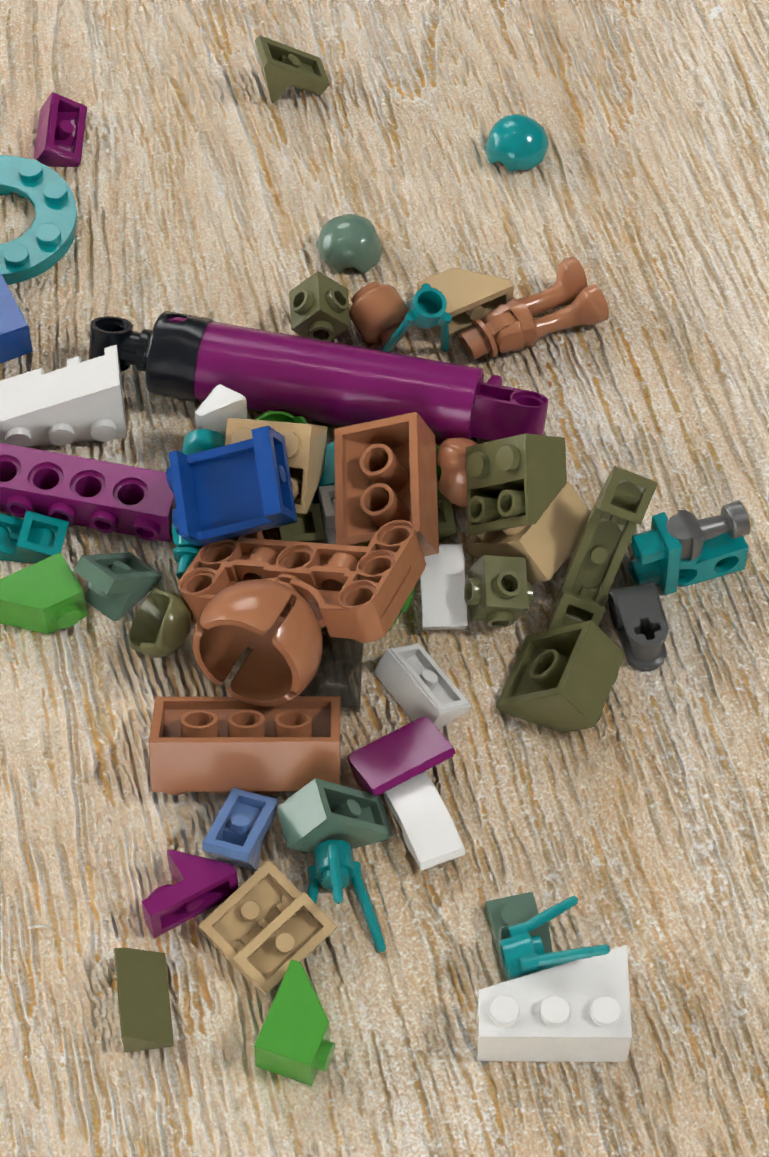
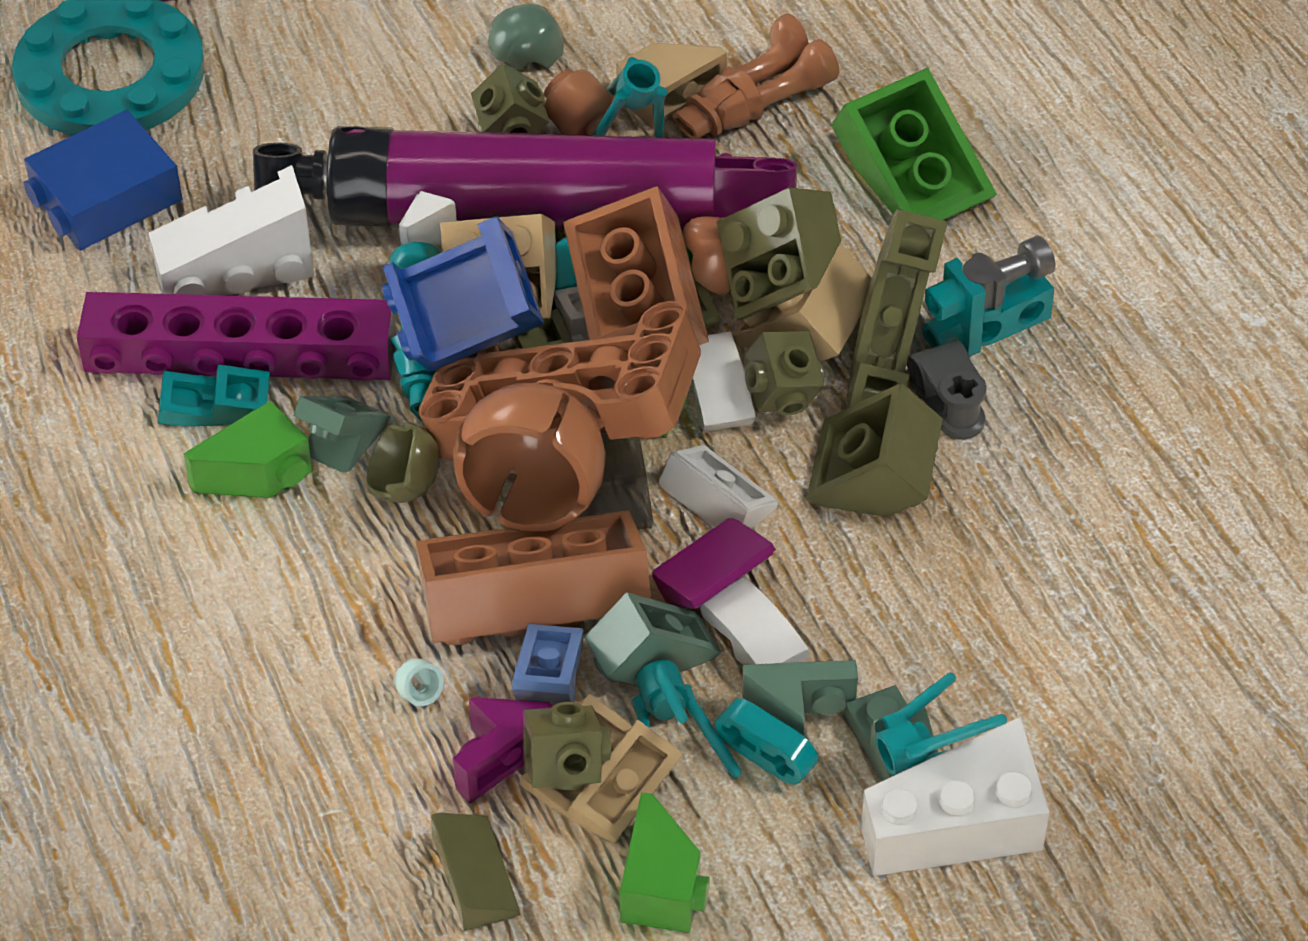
camera: 10 degrees left, 5 degrees down
(142, 817) = (427, 674): none -> light aqua hinge
(235, 907) = (564, 746): none -> olive brick
(411, 926) = (766, 741): none -> teal beam
(437, 882) = (800, 688): none -> sand green slope
(656, 400) = (913, 149): none -> bright green slope

